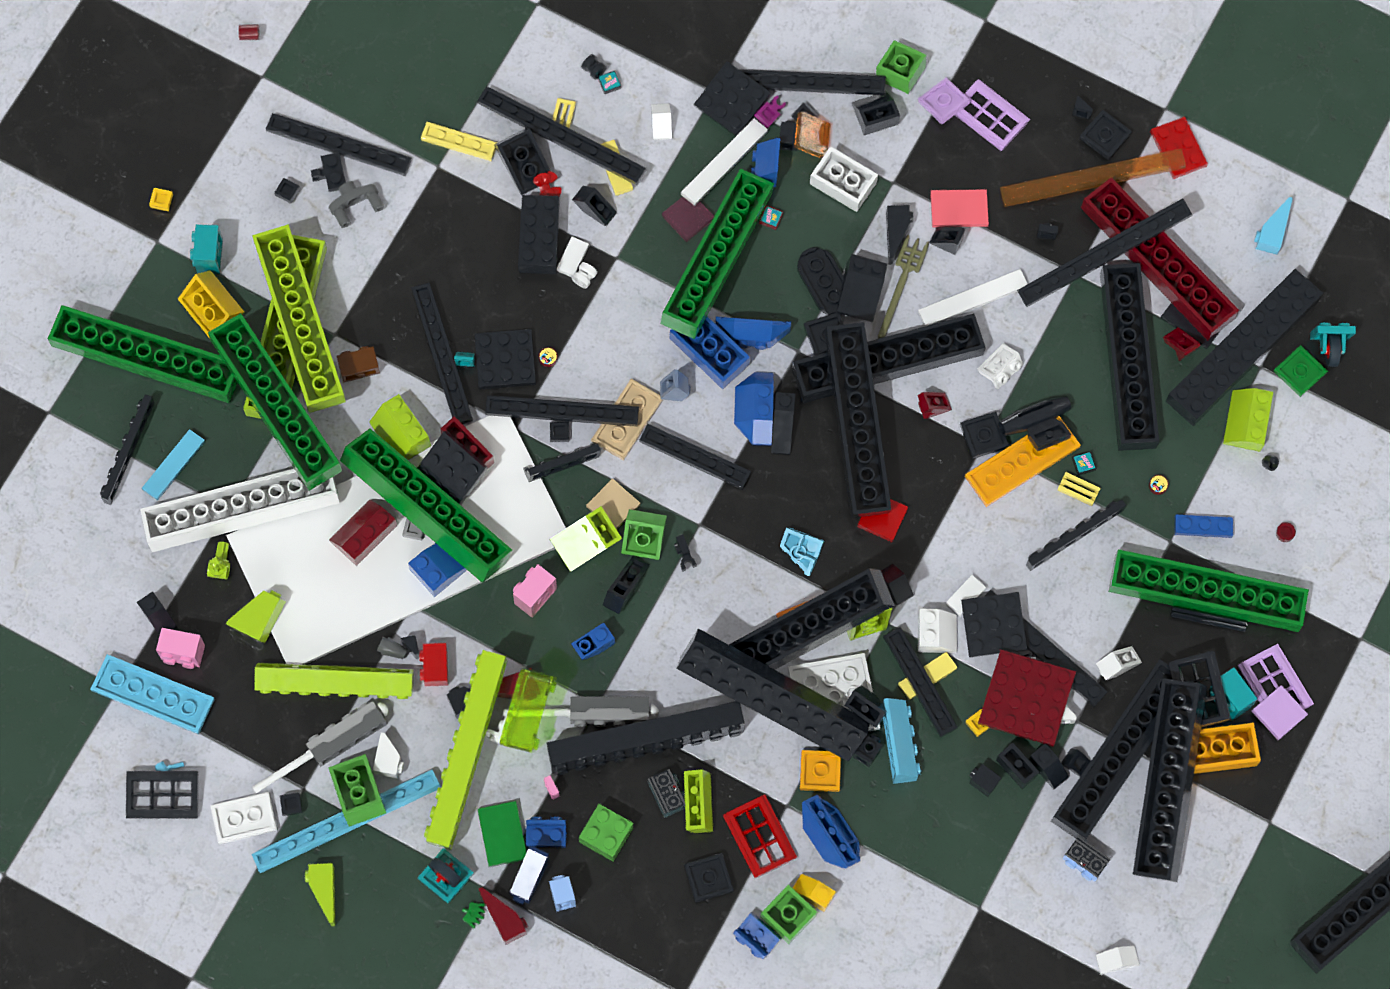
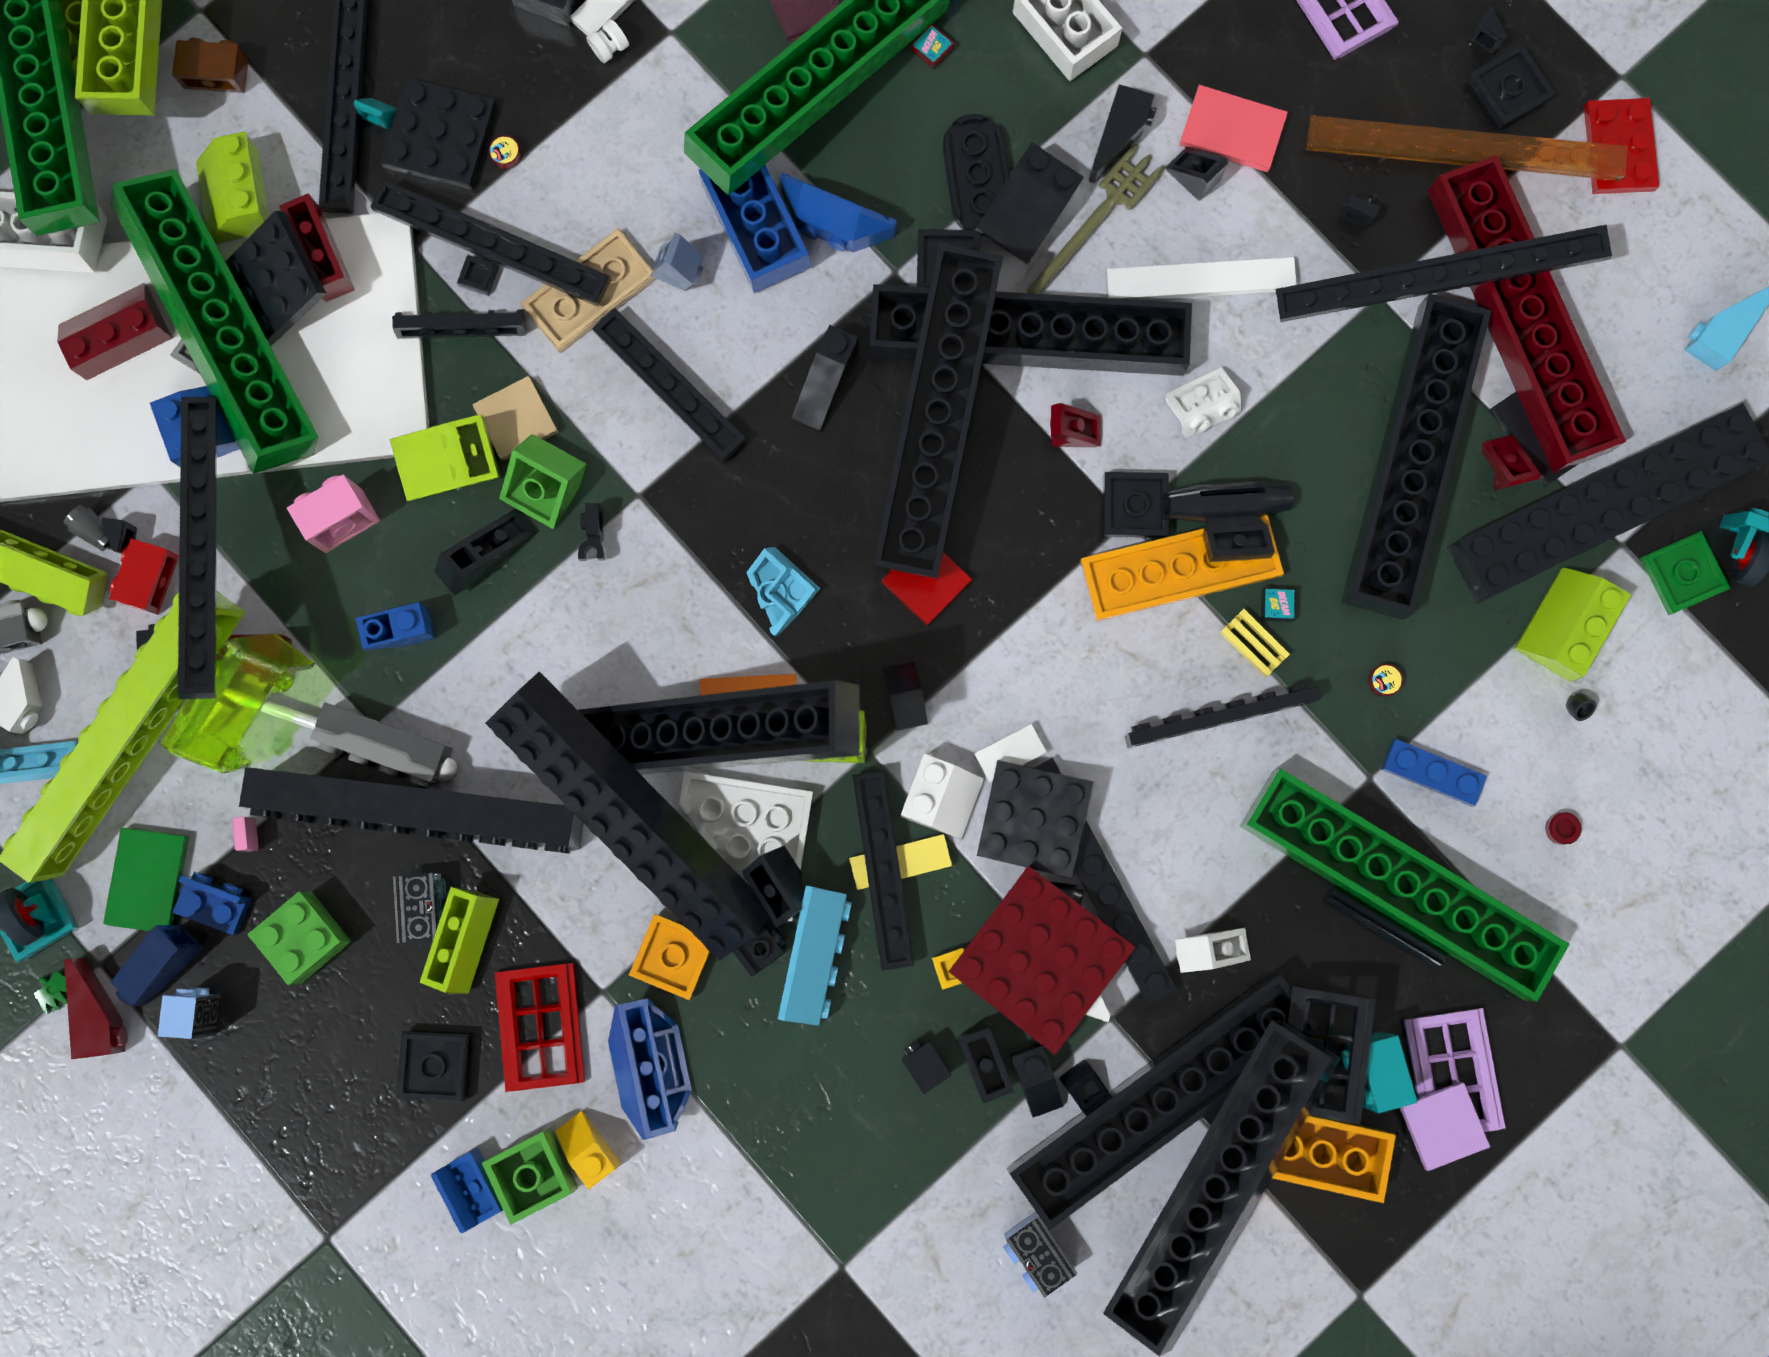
camera: 25 degrees right, 10 degrees up
(480, 626) = (197, 549): none -> black plate
(755, 408) = (791, 337): blue wedge -> none

